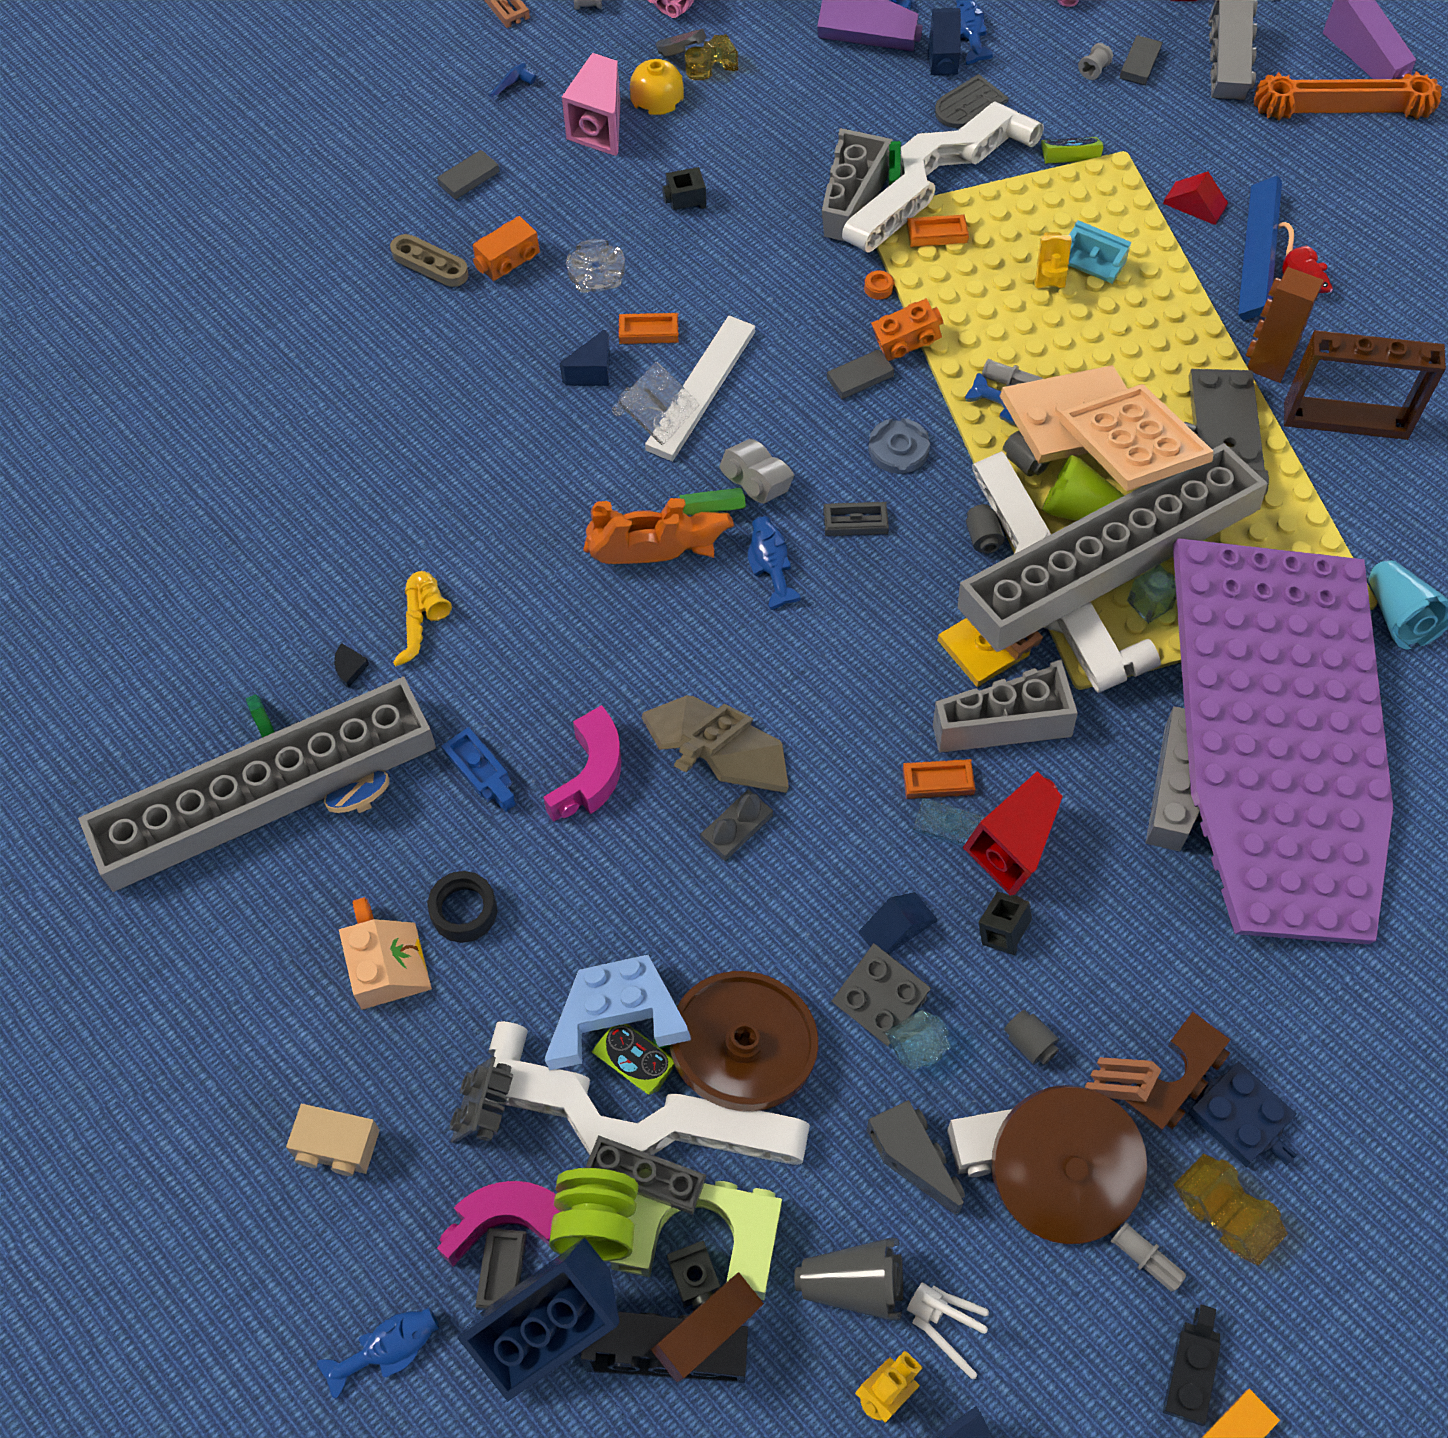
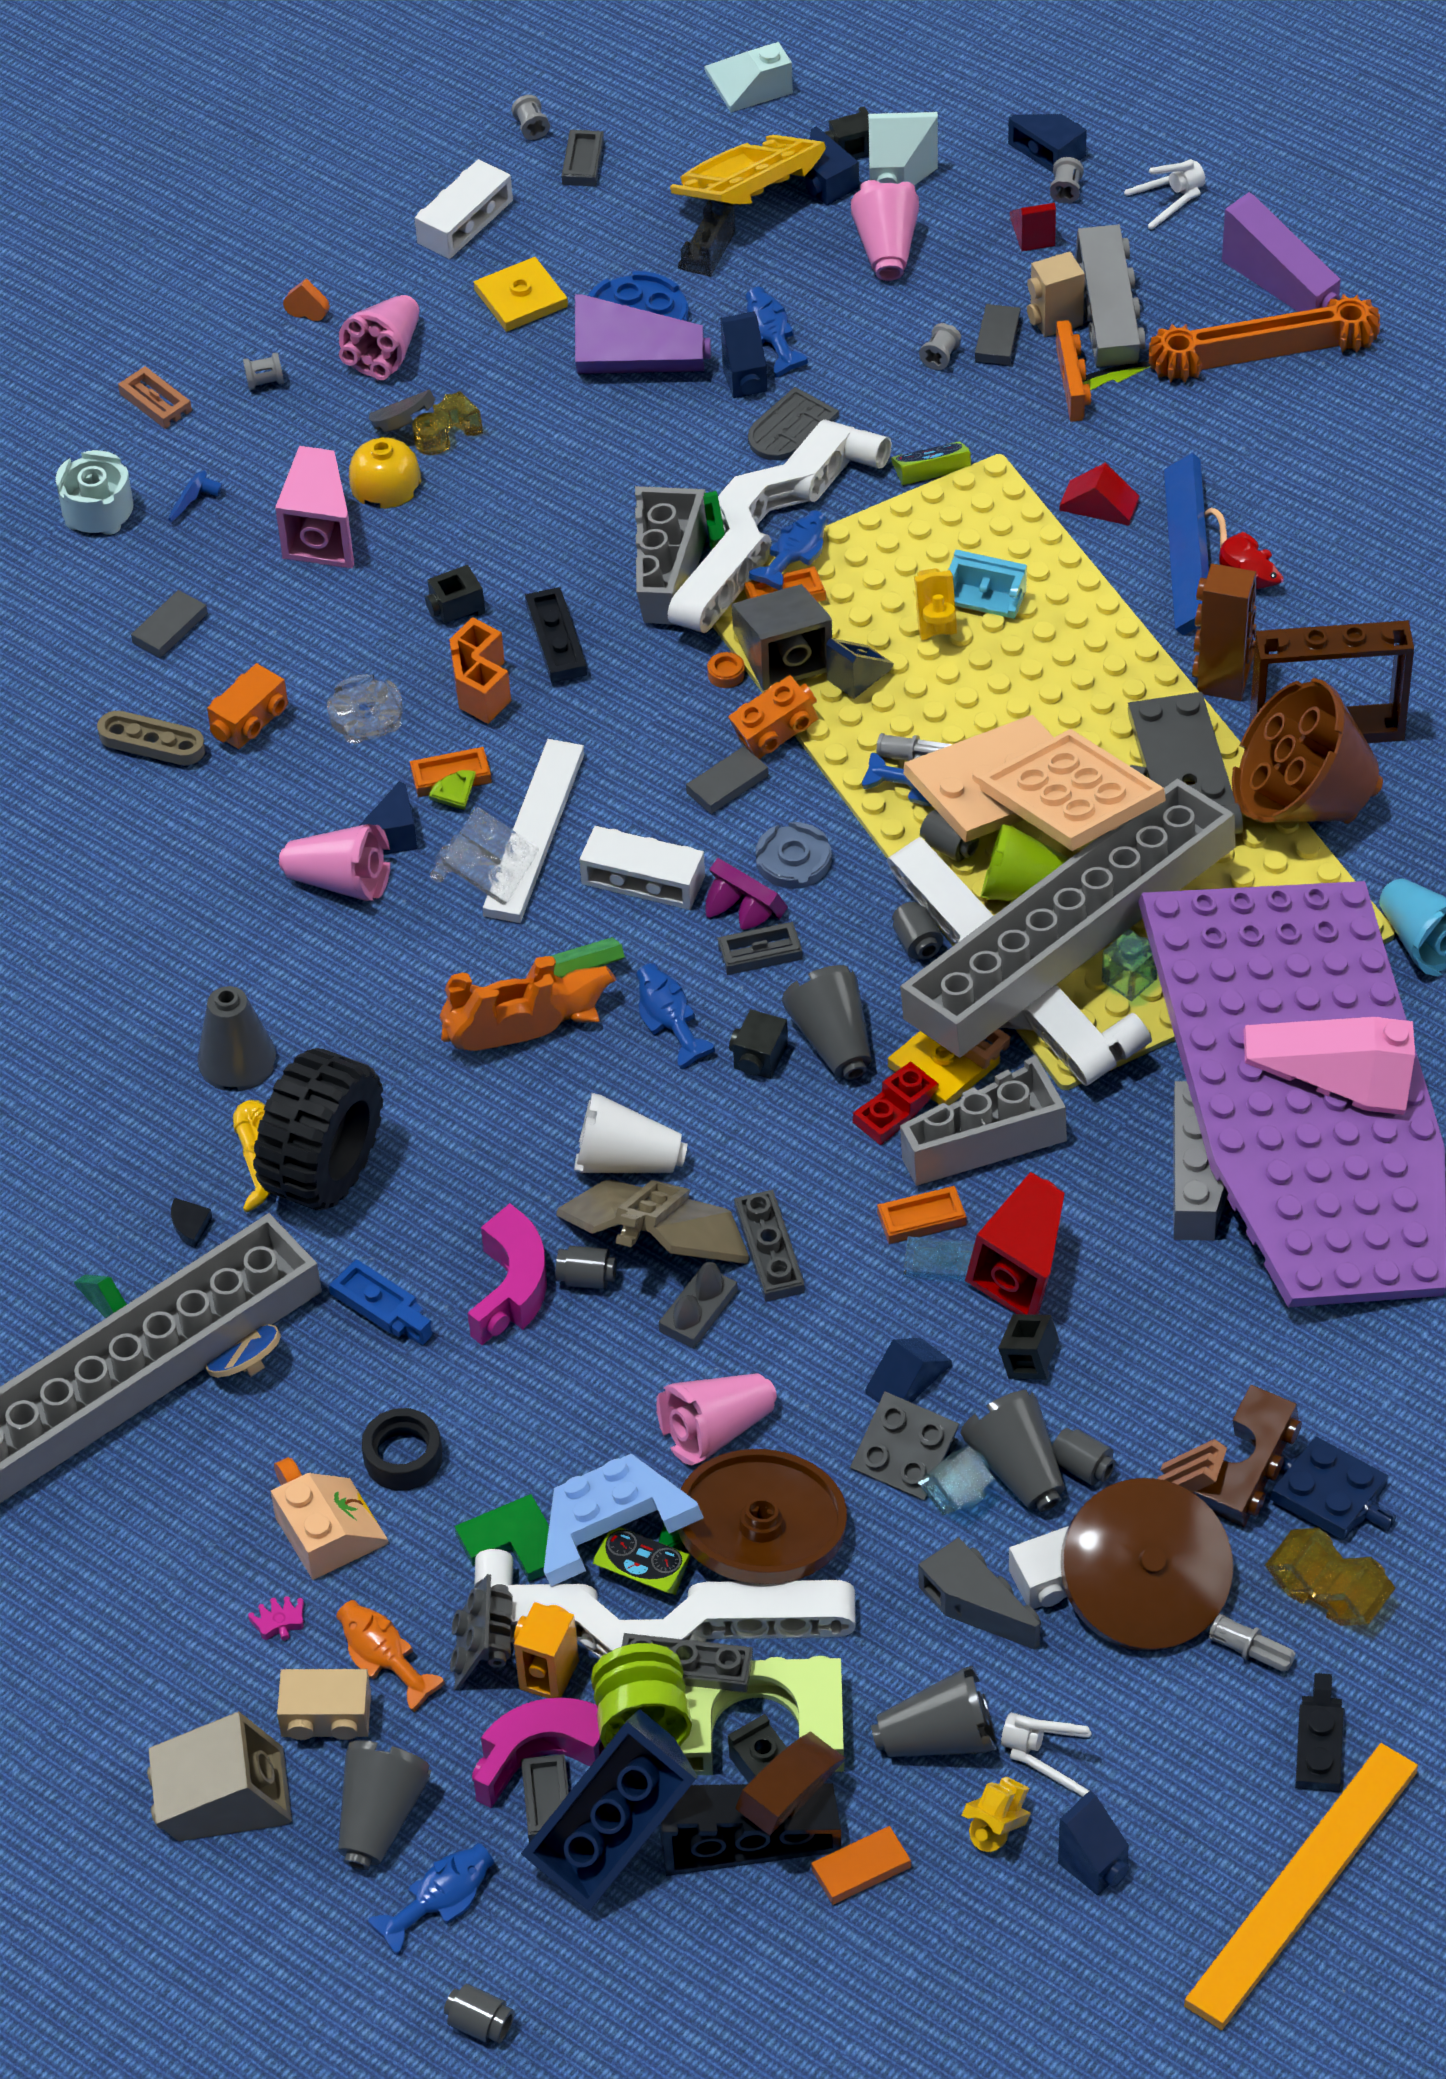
camera: 10 degrees left, 10 degrees down
(226, 1195) = (219, 1780): none -> dark tan slope
(324, 1042) = (279, 1619): none -> dark pink piece
(350, 1248) = (376, 1800): none -> dark grey cone
(395, 1088) = (377, 1646): none -> orange animal
(421, 521) = (234, 1042): none -> dark grey cone
(438, 65) = (94, 492): none -> light aqua brick
(458, 612) = (318, 1129): none -> black tyre
(530, 1132) = (546, 1650): none -> light orange brick
(532, 998) = (512, 1527): none -> green tile
(544, 386) = (340, 861): none -> bright pink cone
(646, 342) = (454, 789): none -> lime tile
(651, 772) = (585, 1267): none -> dark grey brick
(686, 251) = (477, 670): none -> orange brick
(709, 668) = (625, 1141): none -> white cone
(726, 930) = (712, 1412): none -> bright pink cone
(754, 234) = (555, 635): none -> black plate
(756, 470) = (628, 913): light grey brick -> none
(758, 1405) = (861, 1865): none -> orange tile
(779, 431) = (642, 867): none -> white brick
(807, 797) = (769, 1245): none -> dark grey tile
(836, 602) = (759, 1044): none -> pearl dark grey brick
(843, 462) = (731, 884): none -> magenta tile
(900, 593) = (832, 1018): none -> dark grey cone
(929, 265) = (783, 634): none -> dark grey slope
(937, 676) = (899, 1102): none -> red slope
(955, 193) = (797, 542): none -> blue animal
(978, 299) = (854, 666): none -> slope
(978, 1024) = (1018, 1449): none -> dark grey cone
(1193, 35) = (1056, 293): none -> tan brick
(1193, 96) = (1072, 370): none -> orange tile
(1227, 105) = (1115, 373): none -> sticker
(1330, 443) = (1305, 759): none -> dark orange cone
(1331, 719) = (1351, 1057): none -> bright pink wedge

